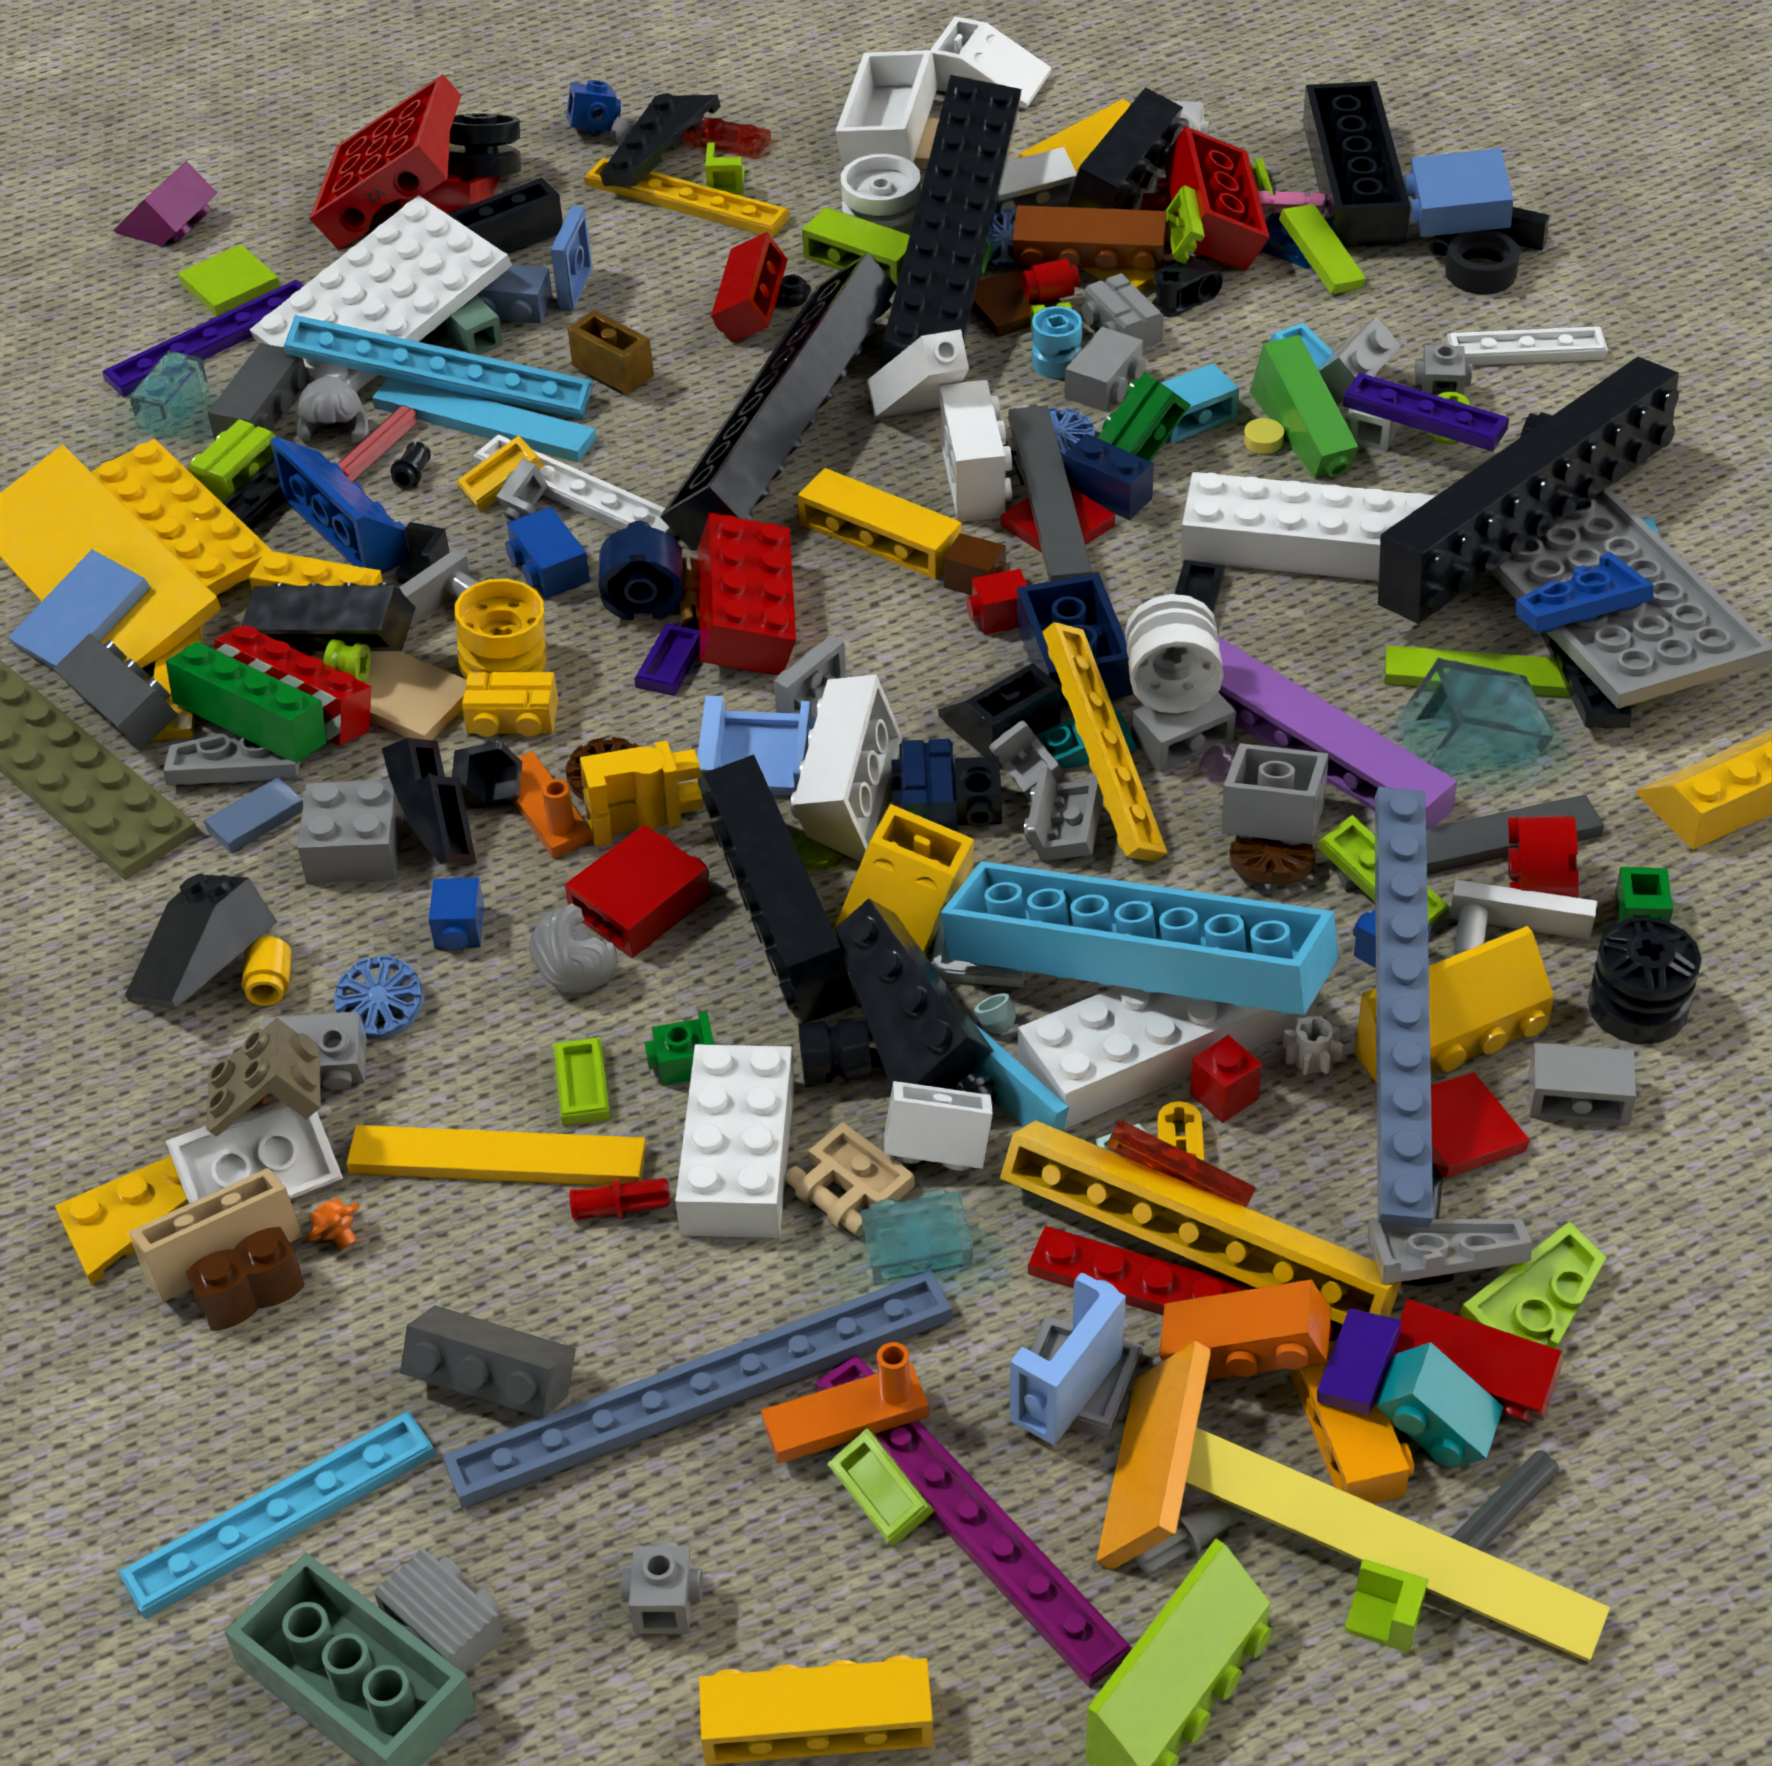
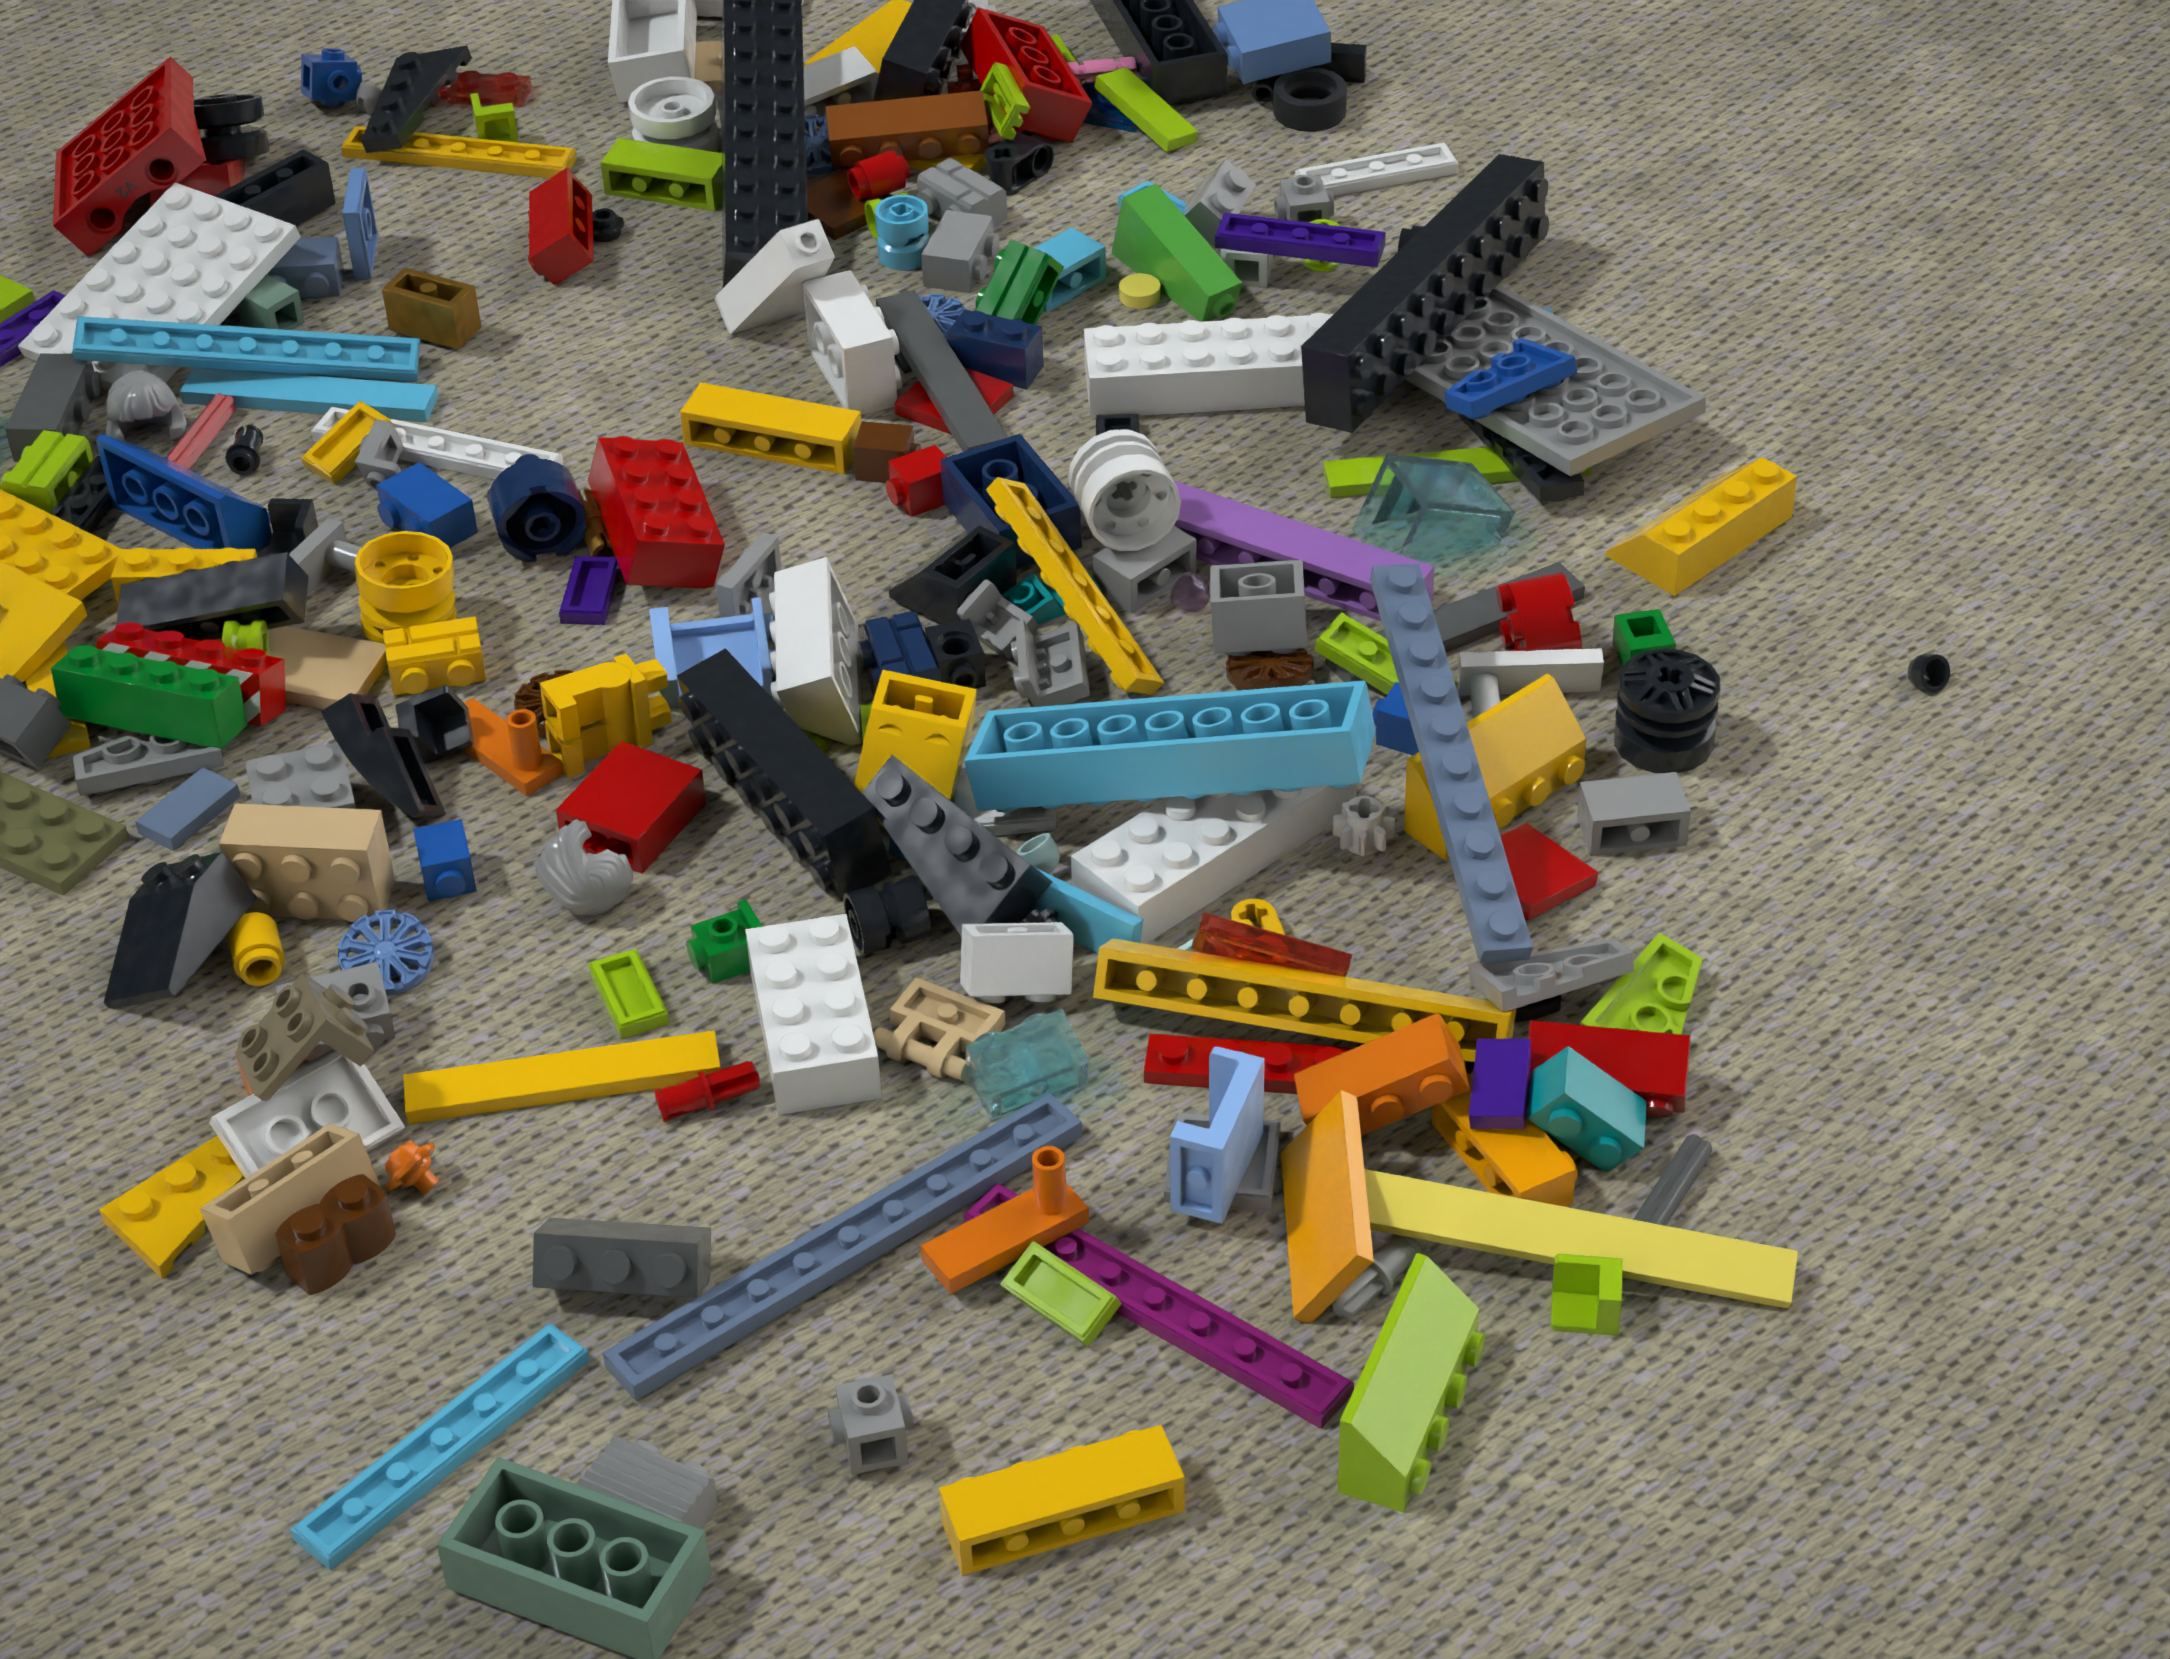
camera: 15 degrees left, 5 degrees down
(332, 895) = (310, 860): none -> tan brick
(782, 400) = (634, 324): black brick -> none
(1225, 1078) = (1288, 870): red brick -> none

